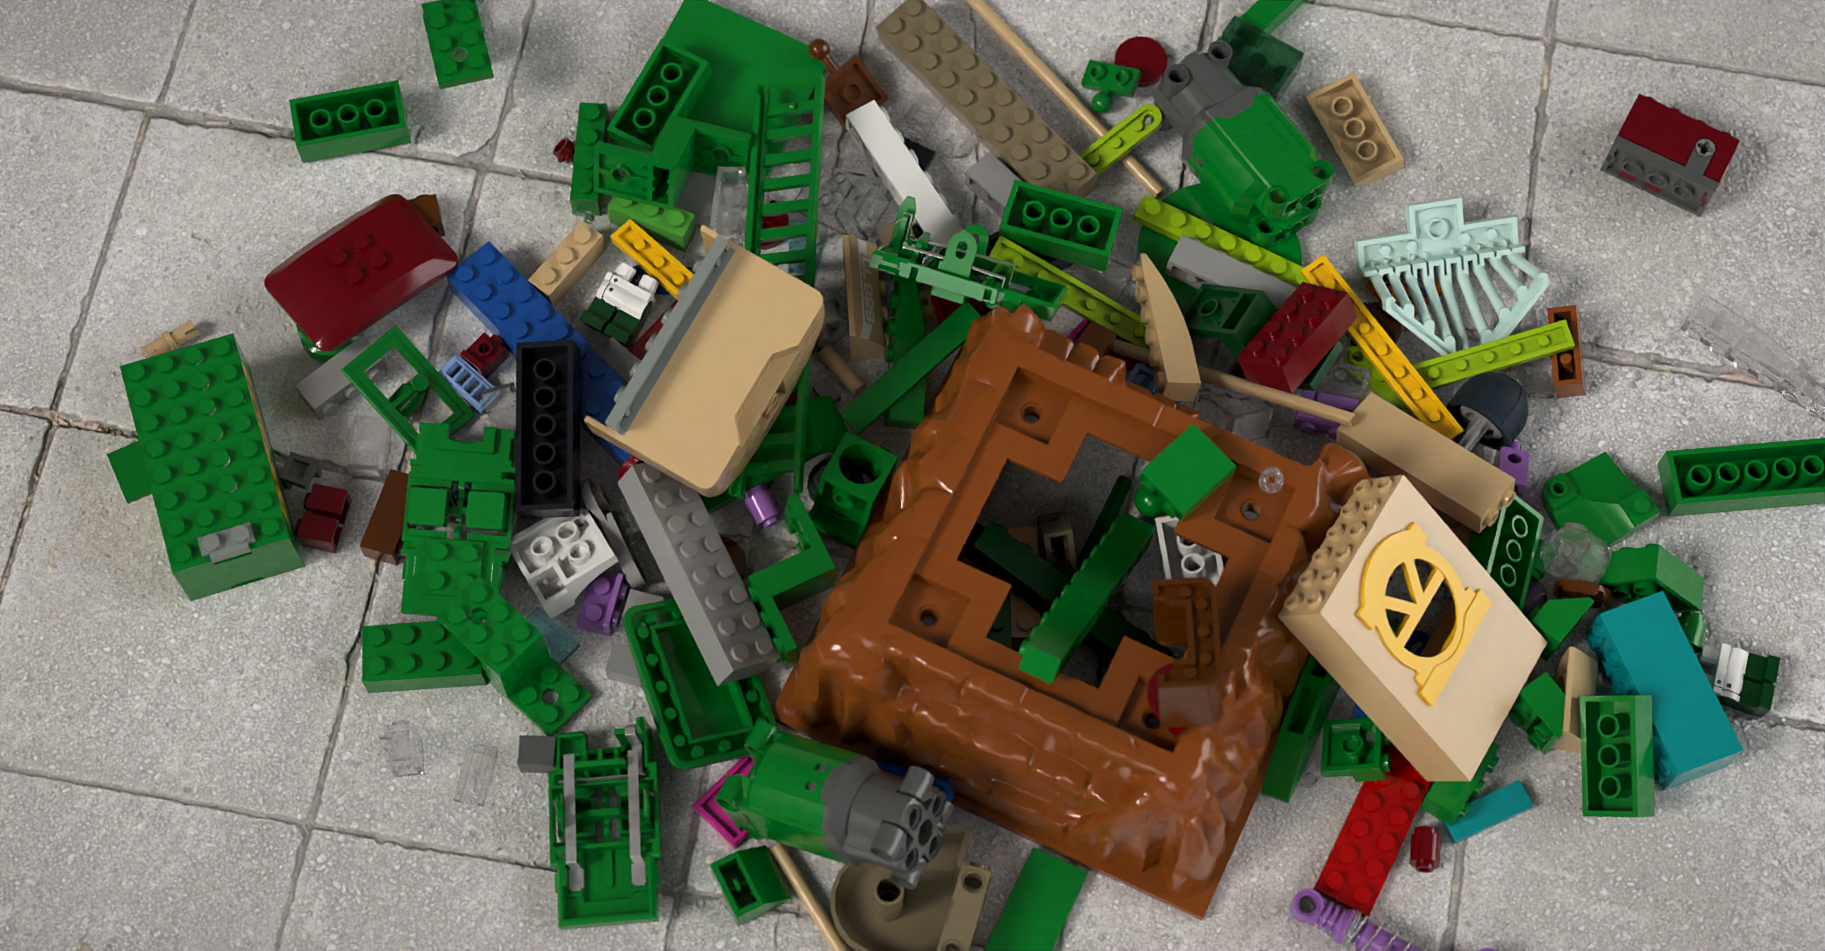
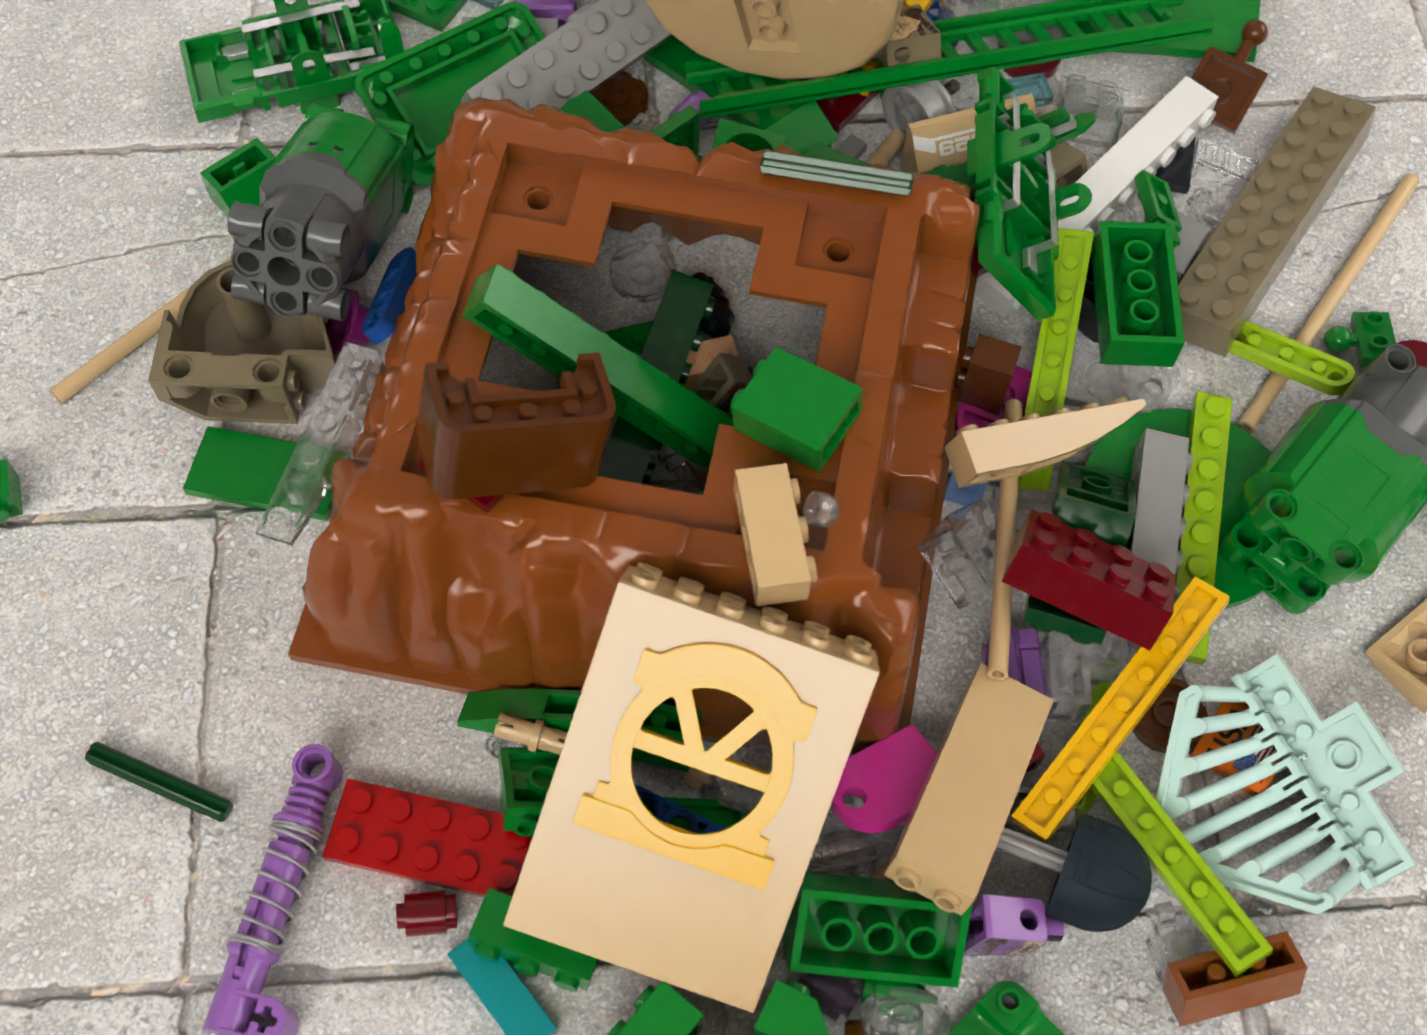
camera: 75 degrees right, 5 degrees down
(972, 182) = (1158, 202): none -> green hinge
(983, 391) = (837, 172): none -> axle
(1036, 857) = (325, 439): none -> clear slope
(1286, 513) = (773, 534): none -> tan brick
(1318, 743) = (530, 734): none -> tan pin

